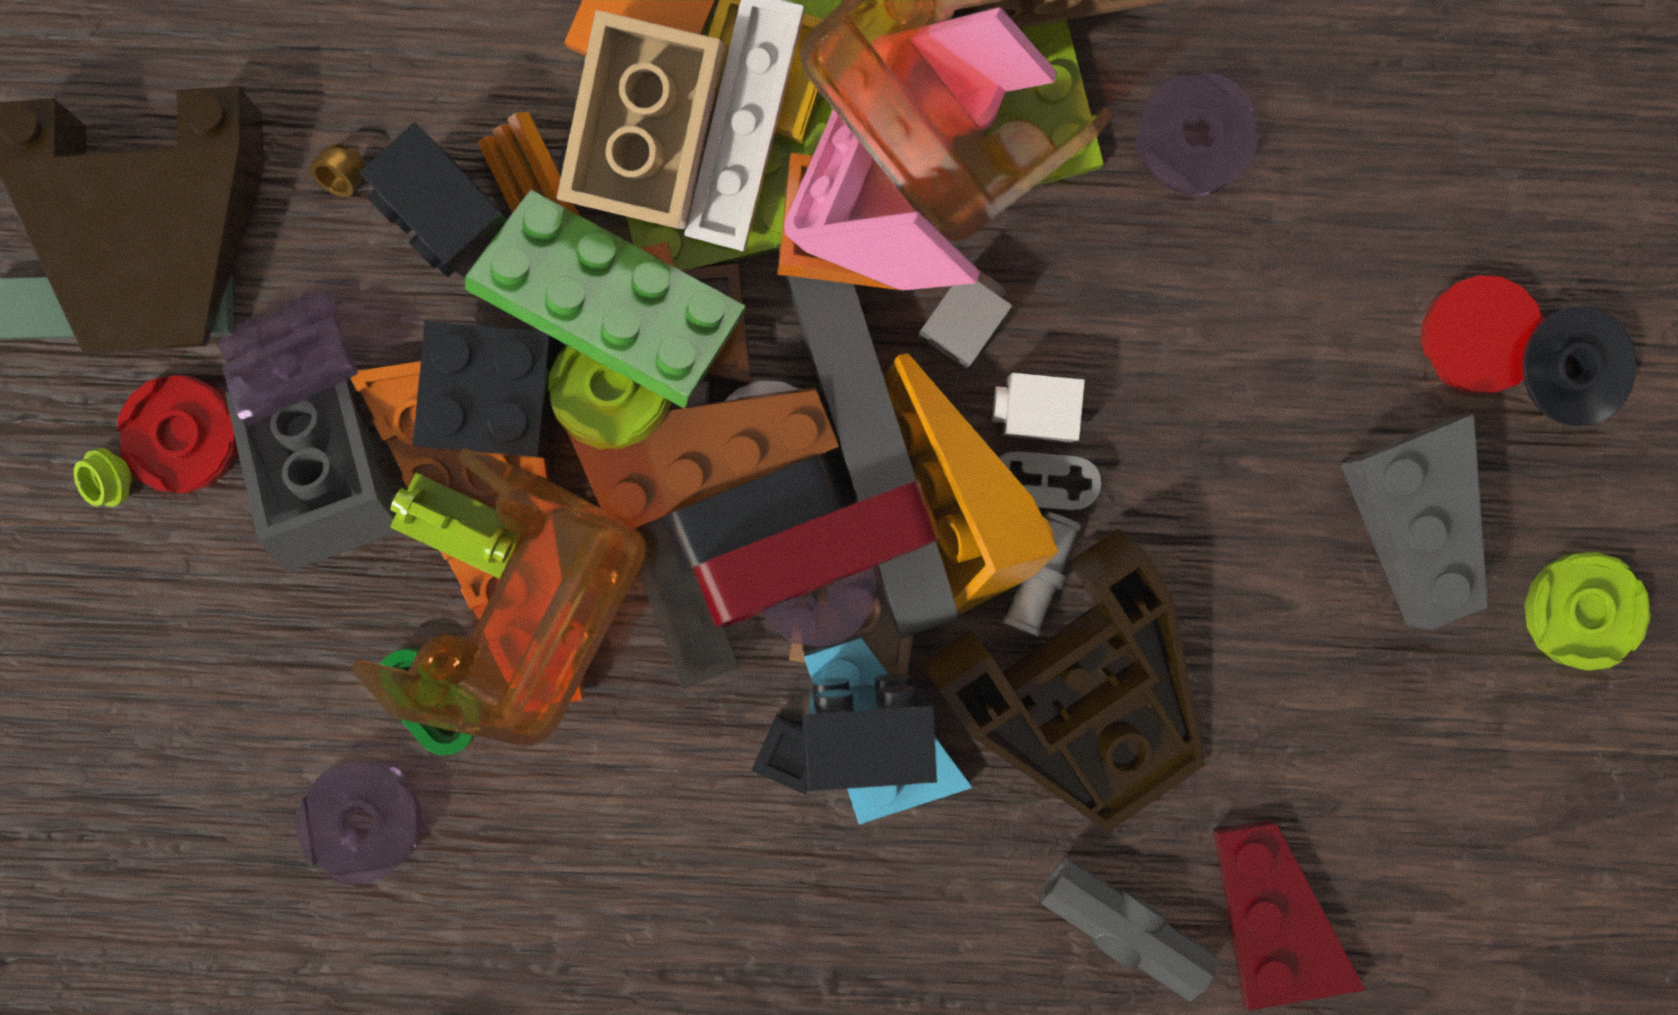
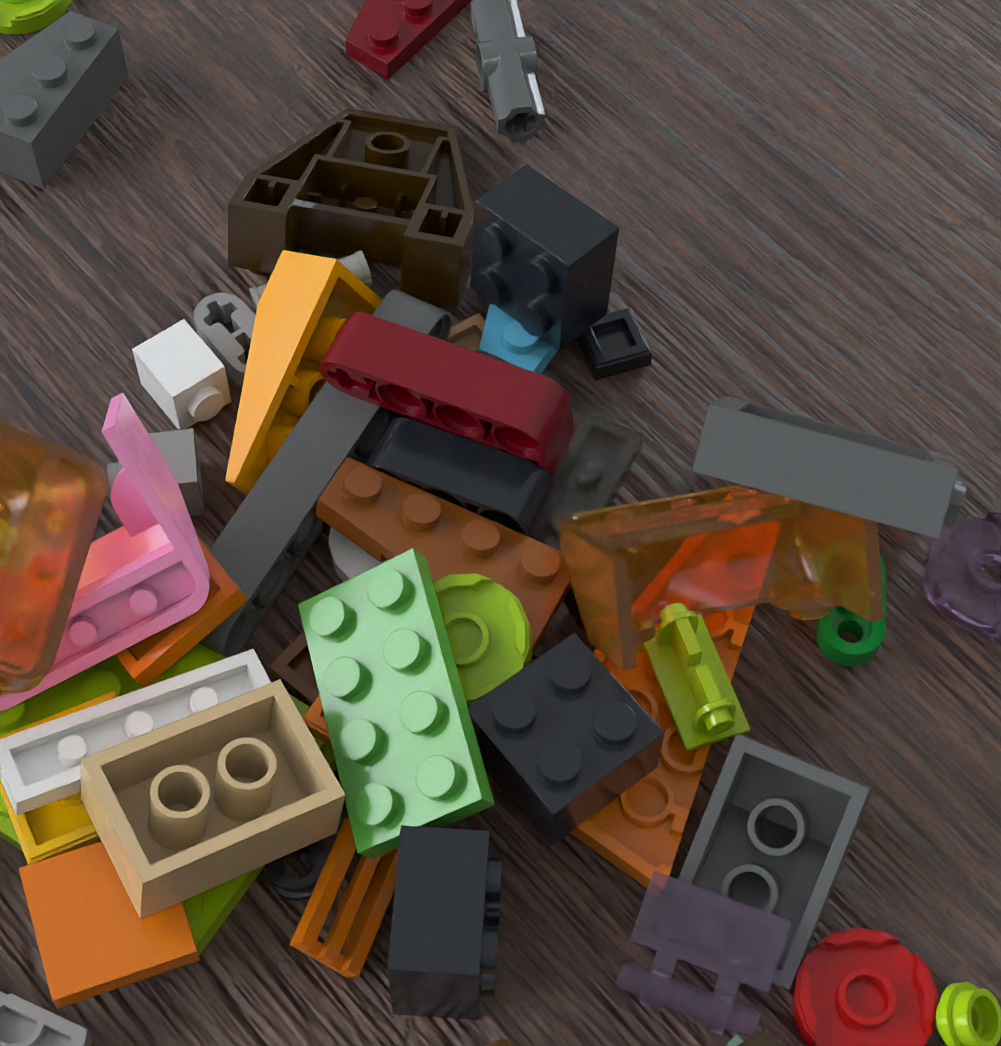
camera: 130 degrees left, 30 degrees down
(460, 700) = (829, 466): none -> dark grey window

